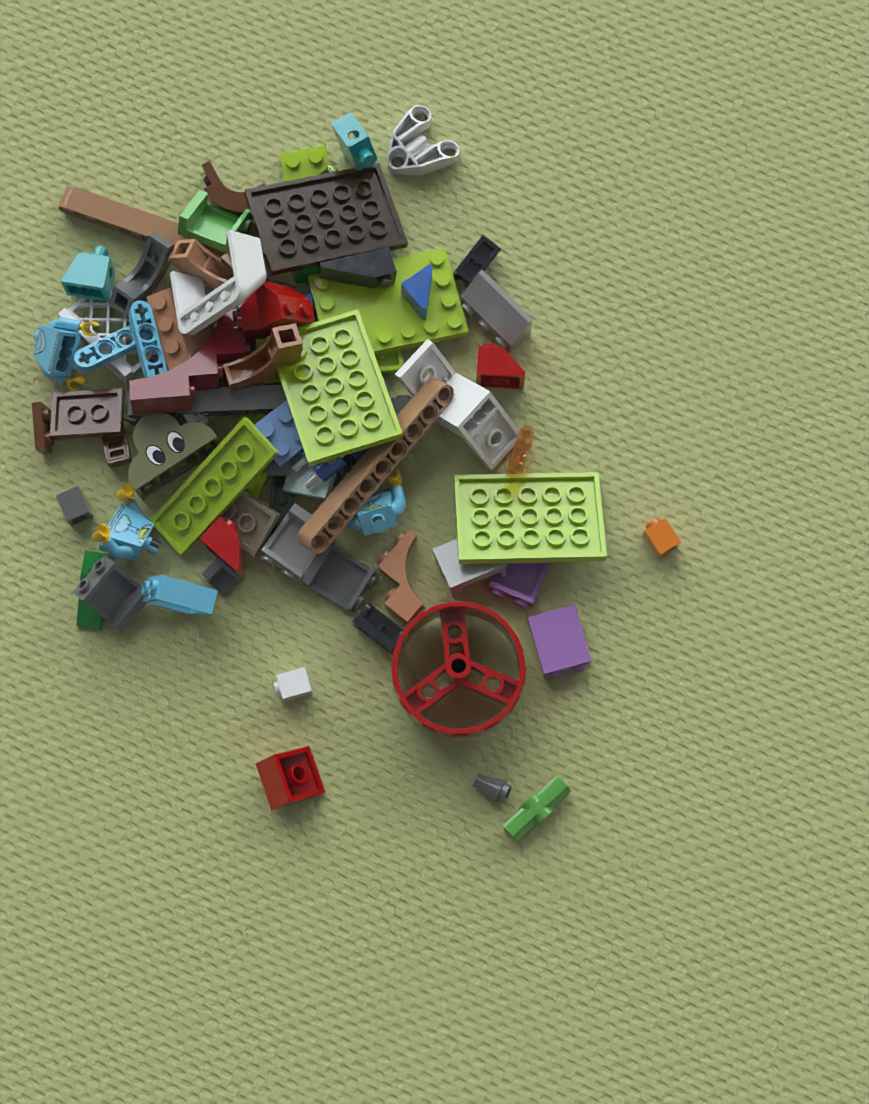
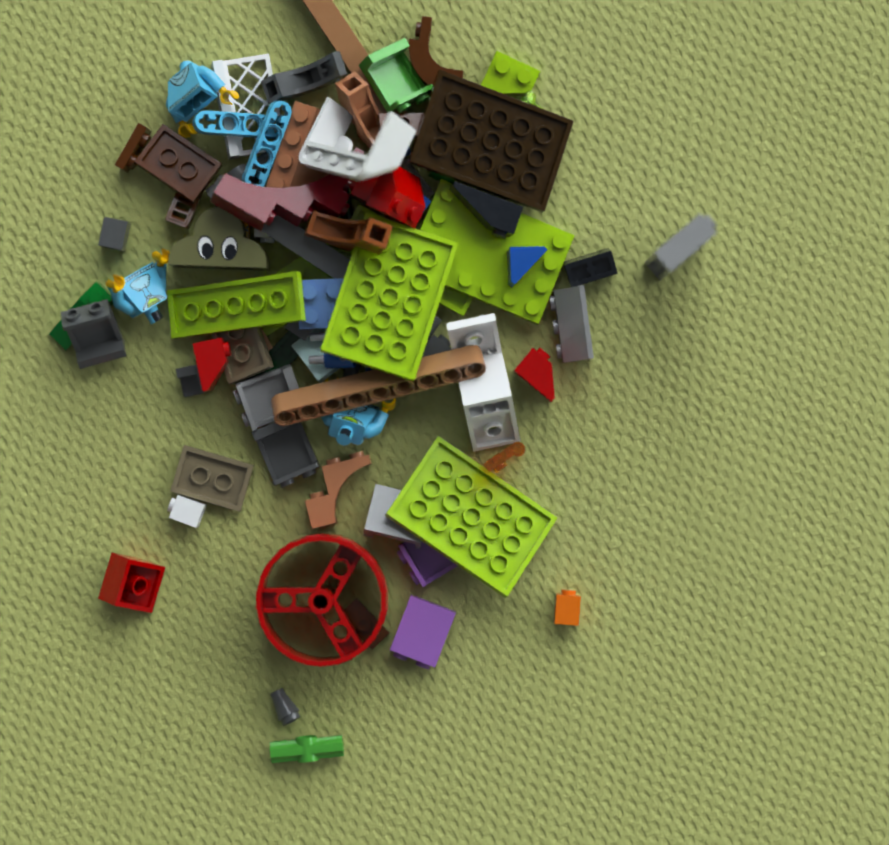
camera: 35 degrees right, 10 degrees up
(90, 276) = (263, 45): torso -> none
(179, 595) = (144, 375): medium azure window -> none
(295, 643) = (212, 478): none -> dark tan plate
(358, 151) = (563, 100): teal torso -> none
(378, 627) = (288, 515): black hinge -> none
(428, 160) = (616, 149): white connector -> none
(507, 667) = (364, 622): none -> reddish brown plate
(535, 179) = (681, 246): none -> light grey fence

